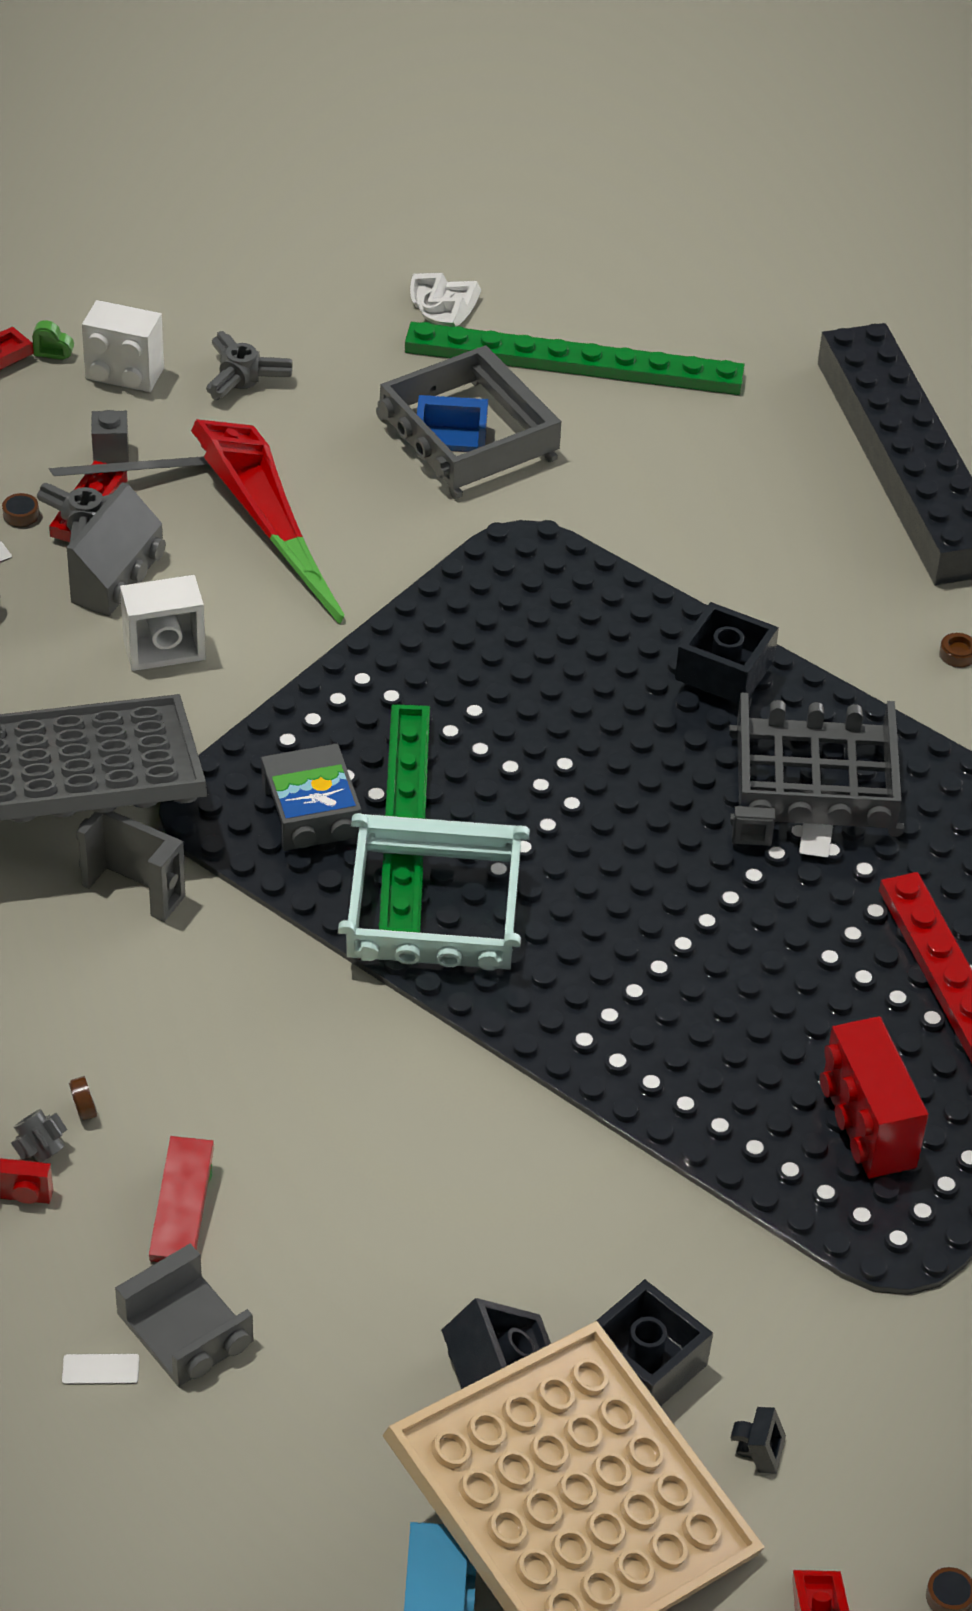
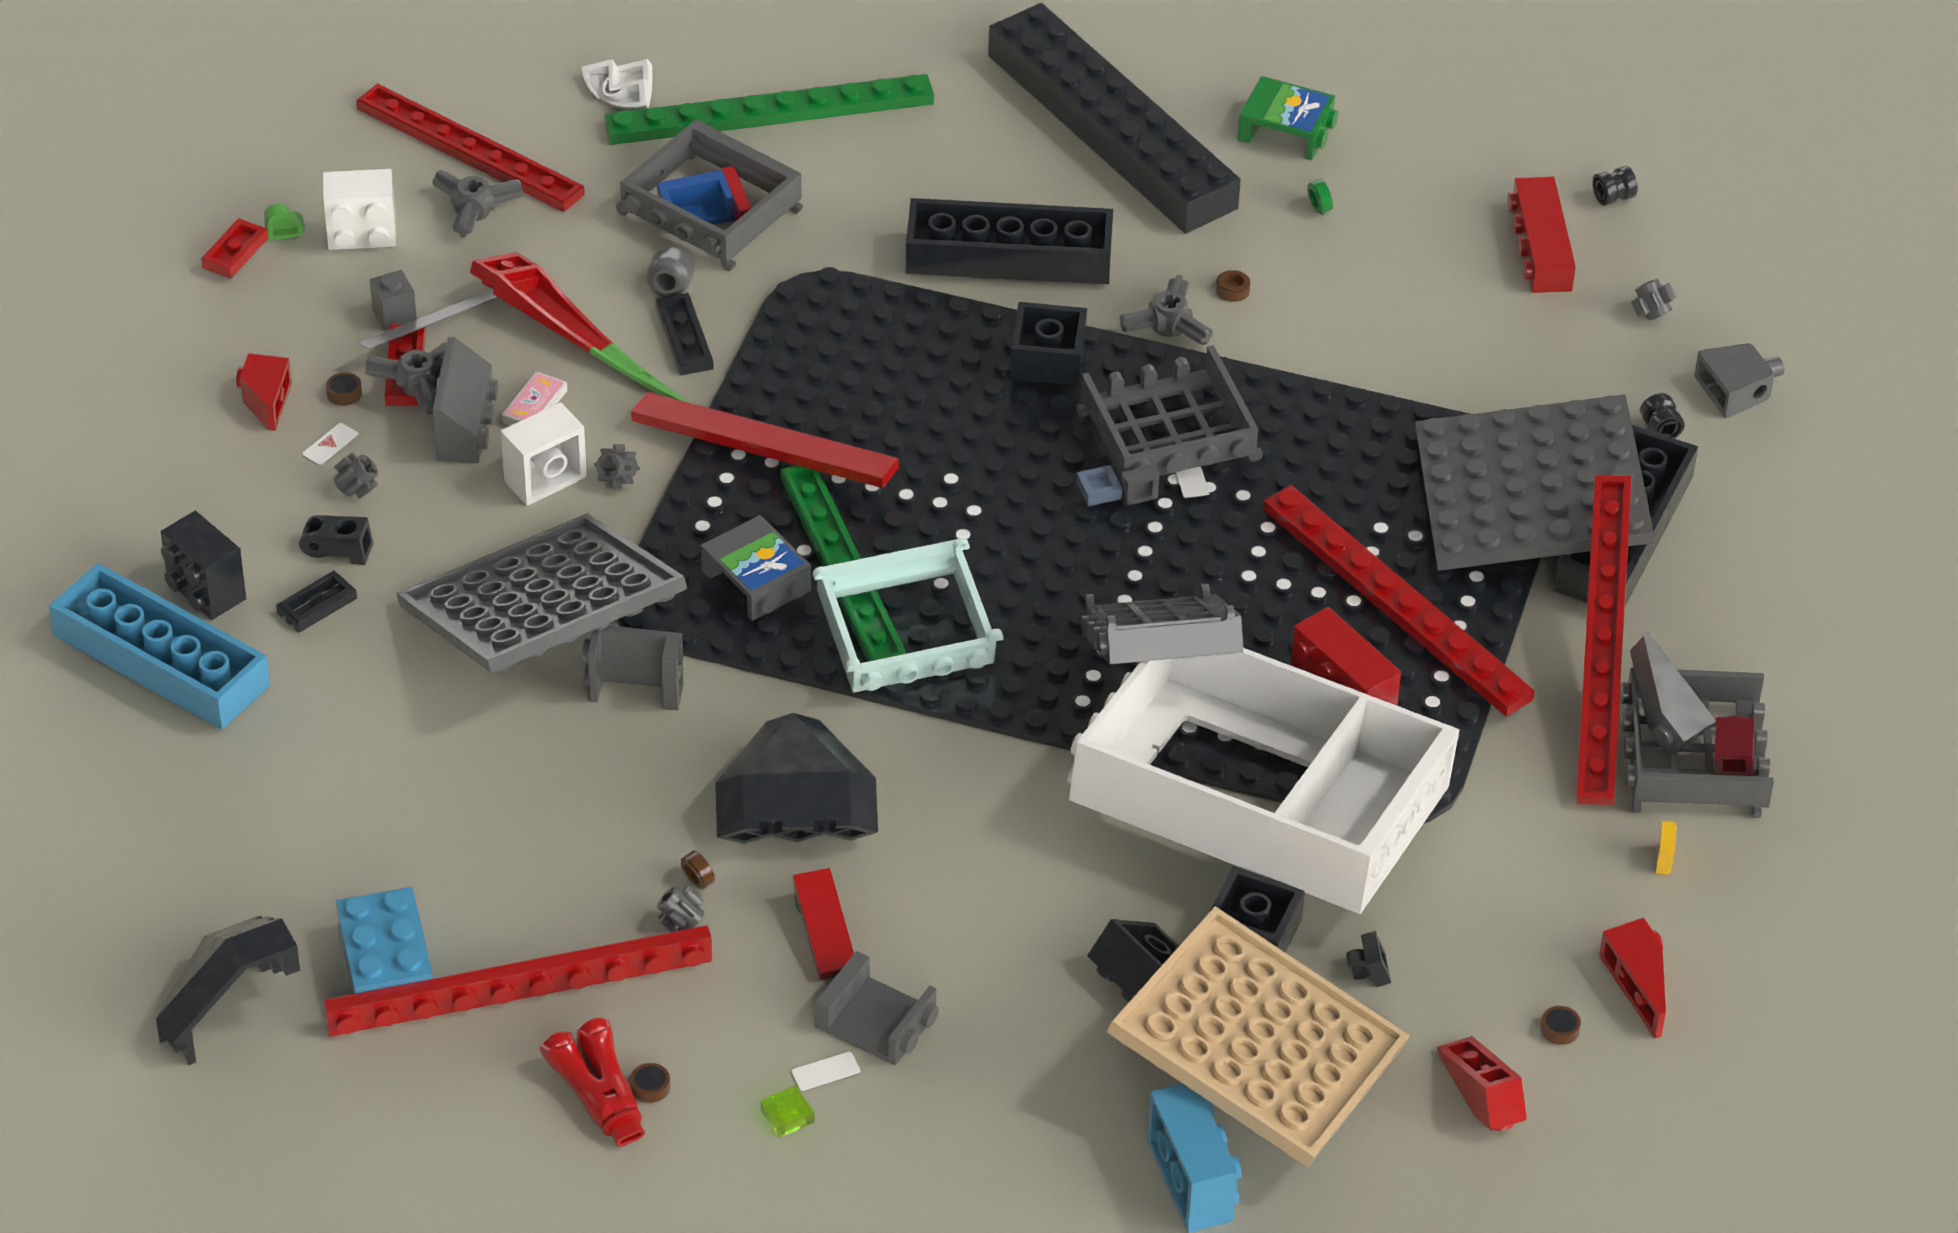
camera: 20 degrees left, 0 degrees up
(32, 1402) = (787, 1111): none -> clear neon green plate
(205, 563) = (537, 395): none -> tile
(225, 1039) = (795, 786): none -> black panel
(233, 656) = (616, 466): none -> dark grey gear
(271, 321) = (470, 147): none -> red tile
(376, 547) = (684, 334): none -> black tile
(391, 483) = (670, 271): none -> dark grey head
(393, 672) = (765, 439): none -> red tile
(494, 417) = (740, 201): none -> red tile
(687, 986) = (1163, 628): none -> window
(711, 814) = (1099, 485): none -> sand blue plate
(742, 542) = (1009, 241): none -> black brick
(789, 1265) = (1342, 825): none -> white panel
(874, 660) = (1169, 315): none -> dark grey bush

